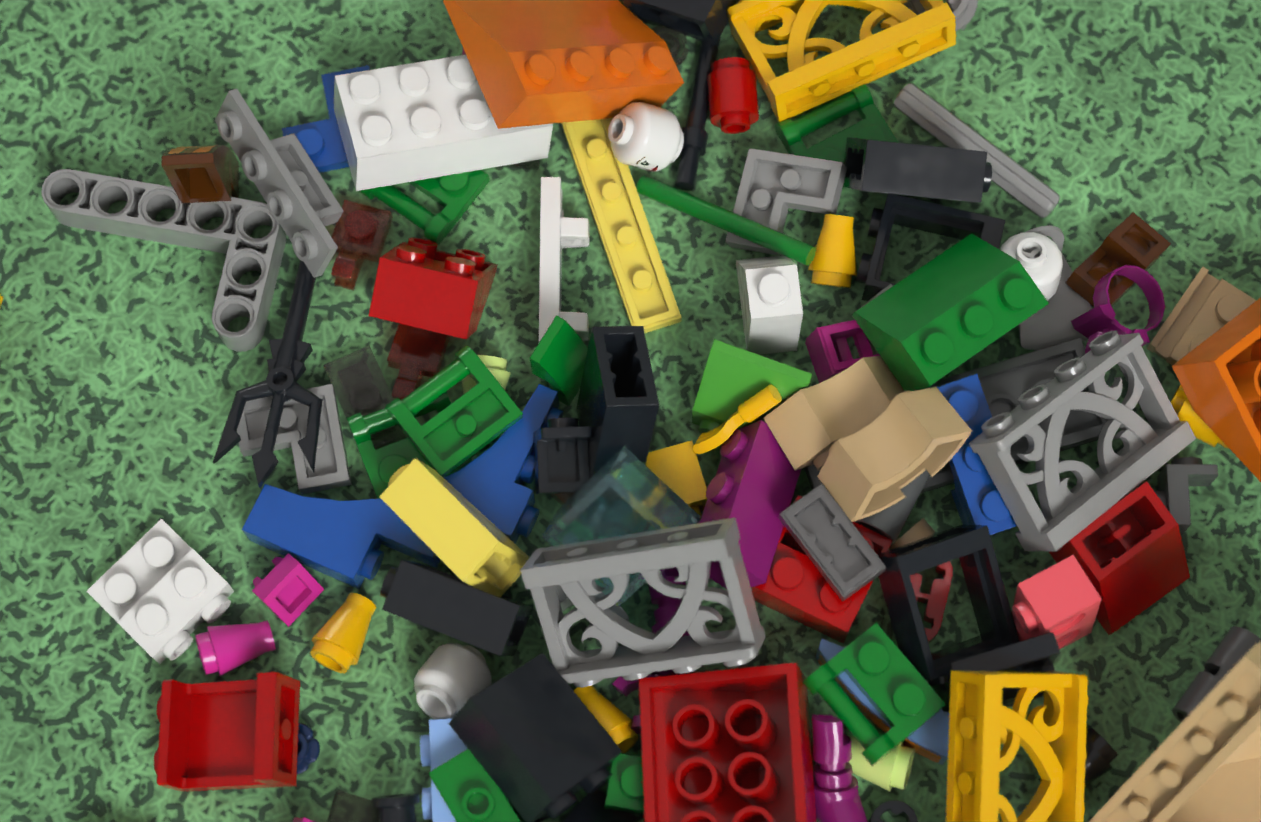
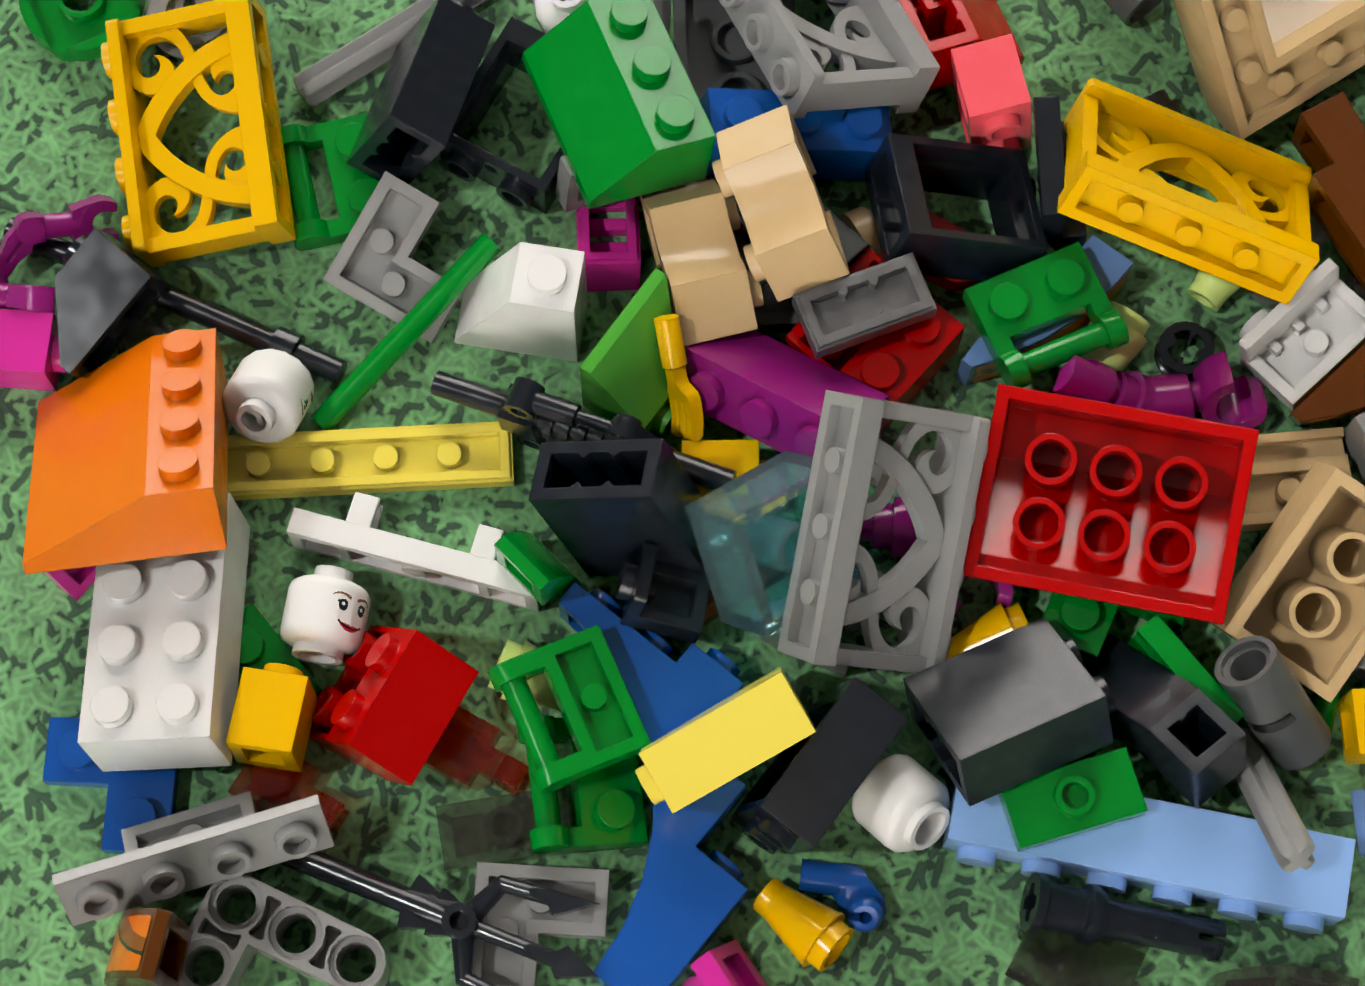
camera: 80 degrees left, 0 degrees up
(382, 664) = (849, 887): none -> blue arm
(398, 207) = (272, 717): none -> yellow brick
(489, 225) = (325, 615): none -> white head
(680, 334) = (548, 418): none -> black bar
(733, 95) = (243, 282): red brick -> none
(835, 253) = (479, 213): yellow cone -> none

